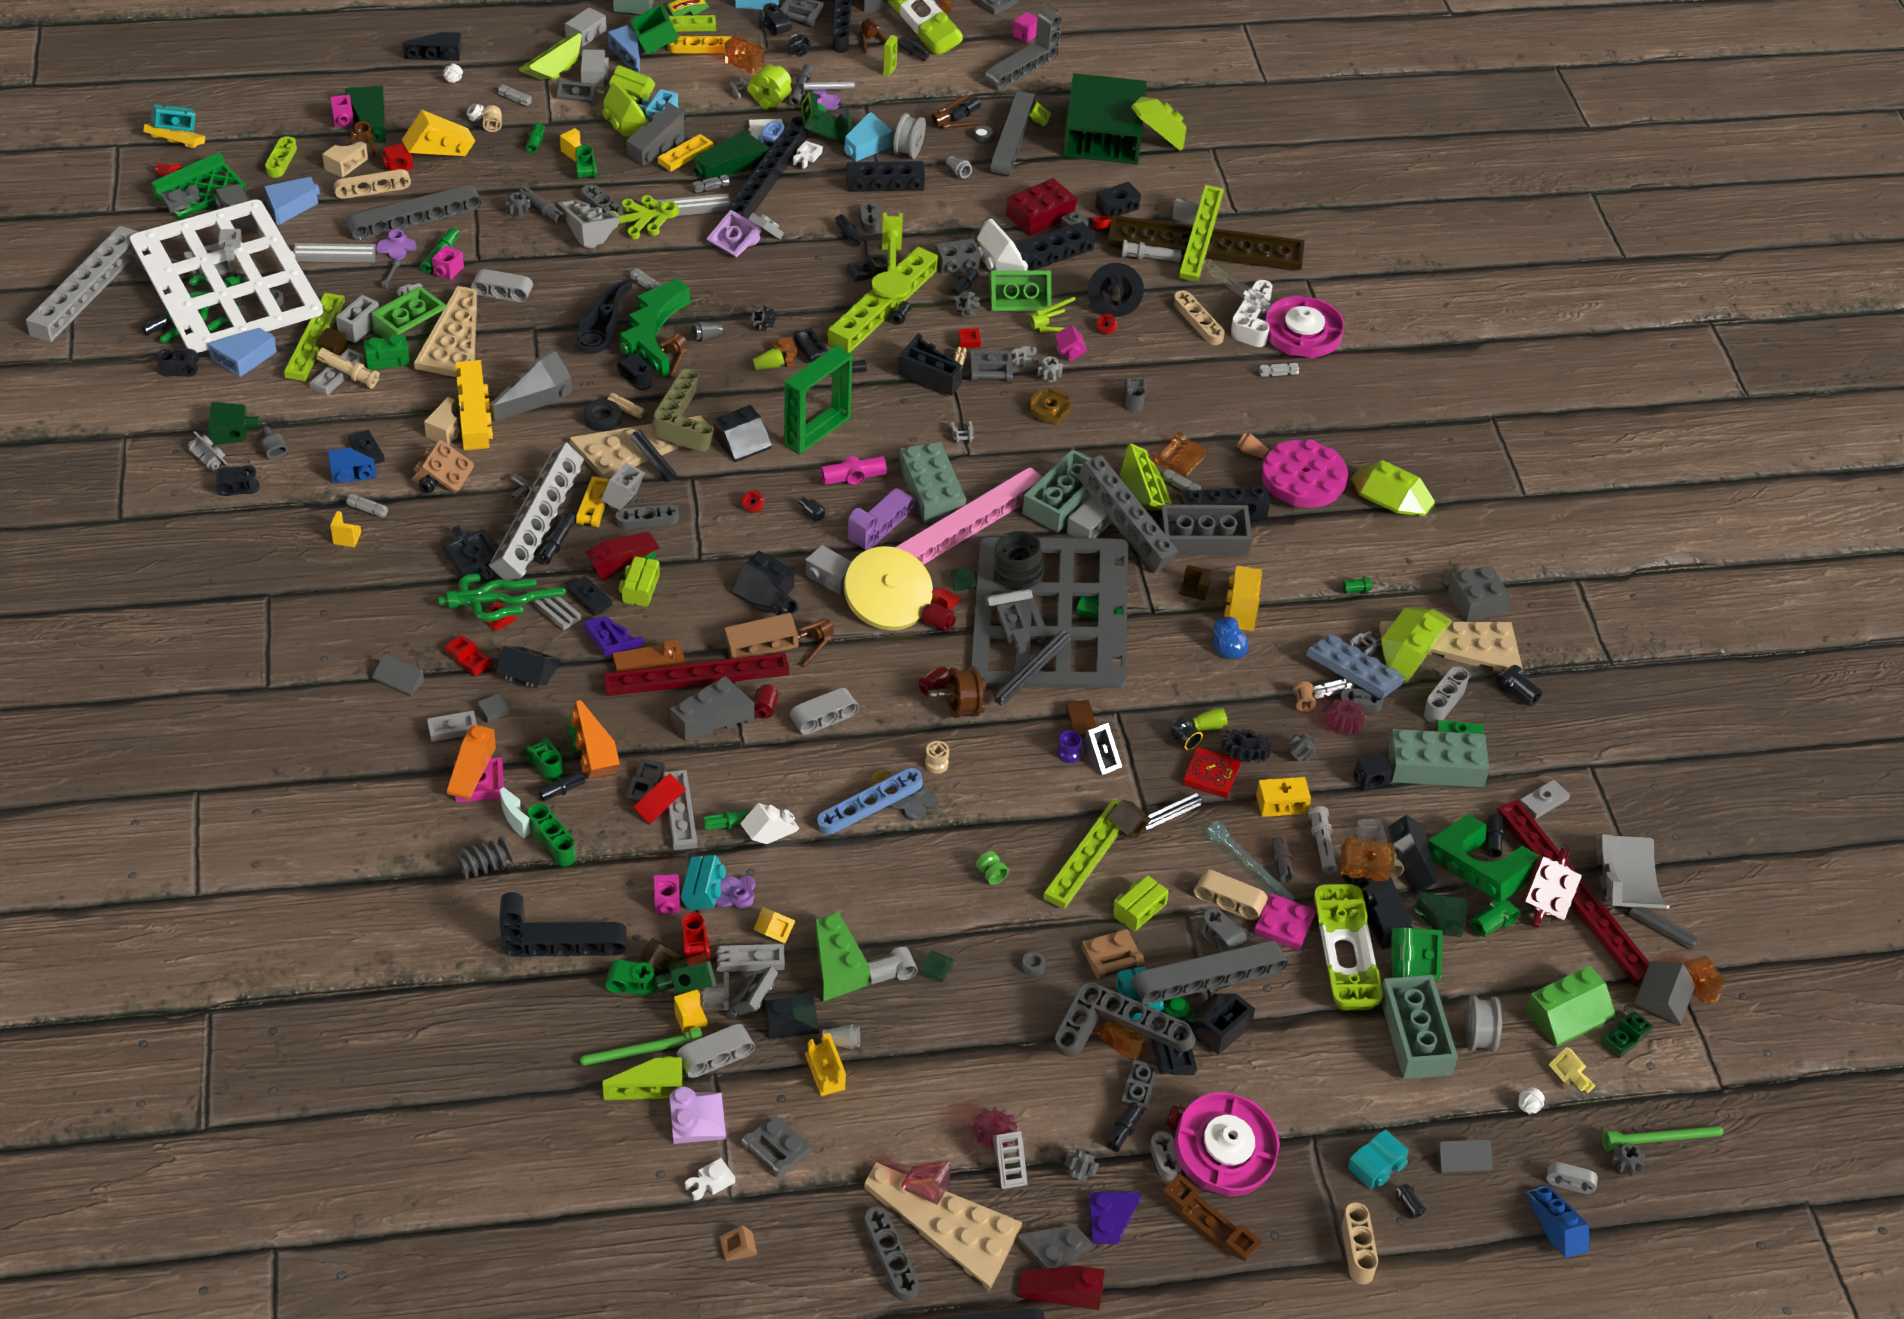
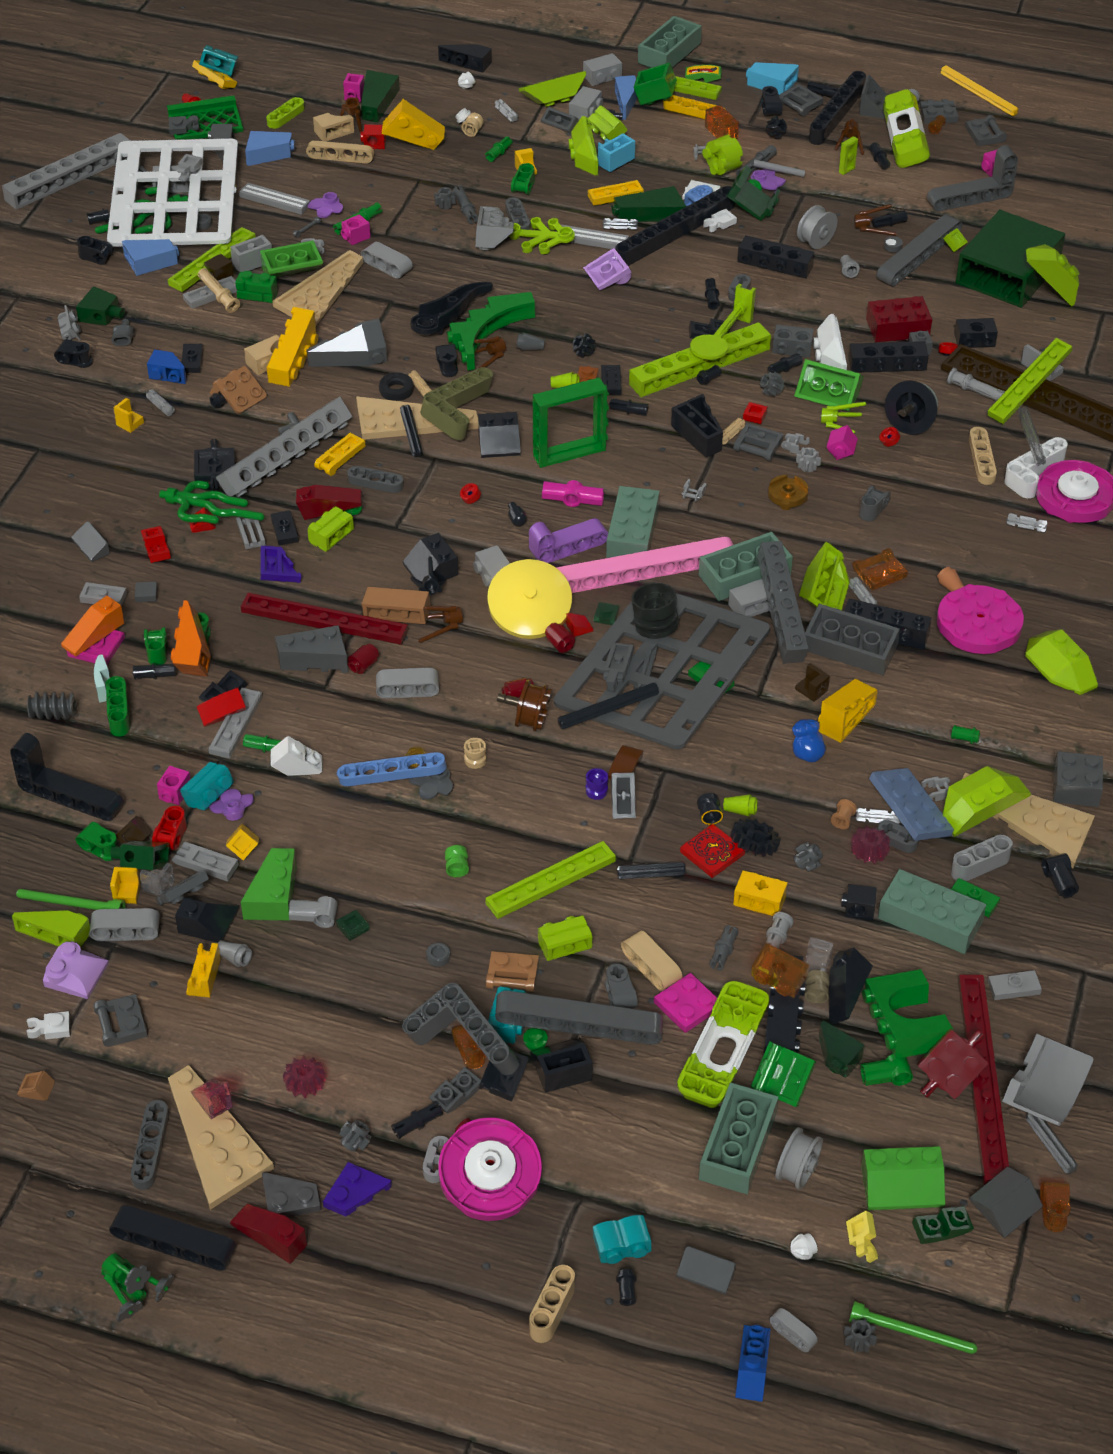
camera: 30 degrees right, 0 degrees up
(414, 212) = (358, 182): dark grey beam -> none
(527, 665) = (193, 566): black slope -> none
(553, 543) = (283, 476): black pin -> none
(623, 486) = (366, 447): light grey brick -> none
(643, 279) = (507, 285): light grey axle -> none
(650, 657) = (310, 594): dark orange hinge -> none
(658, 137) = (598, 172): dark grey wedge -> none
(767, 224) = (634, 266): light grey plate -> none
(868, 138) = (780, 220): medium azure slope -> none
(1008, 597) = (628, 639): light grey tile -> none
(1019, 1149) = (305, 1108): light grey slope -> none
(1129, 818) = (604, 862): dark brown panel -> none
(1209, 1222) = (433, 1226): reddish brown slope -> none
(1219, 833) = (679, 903): clear light blue piece -> none
(1495, 835) = (941, 998): black axle -> none

